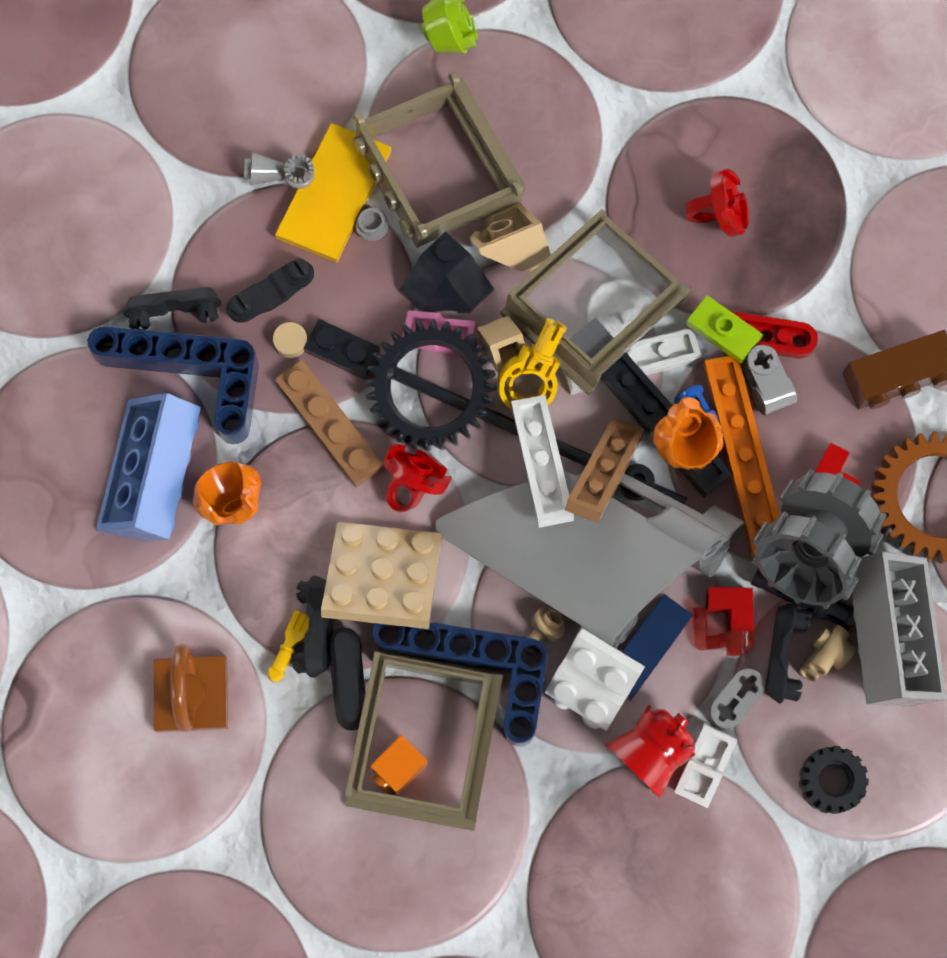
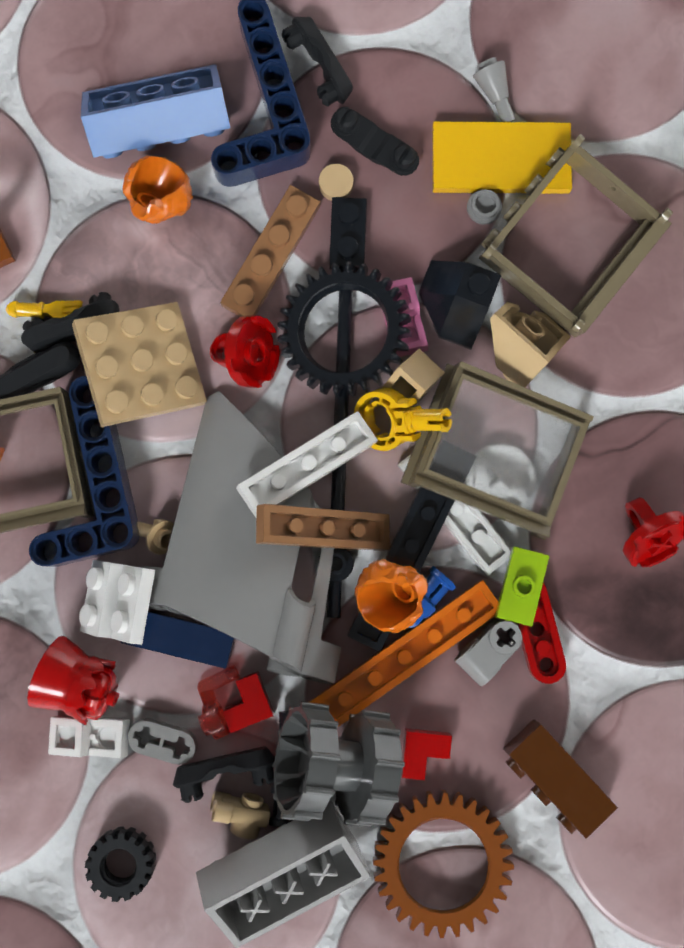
camera: 60 degrees right, 10 degrees up
(290, 168) = (505, 103): light grey bush -> none

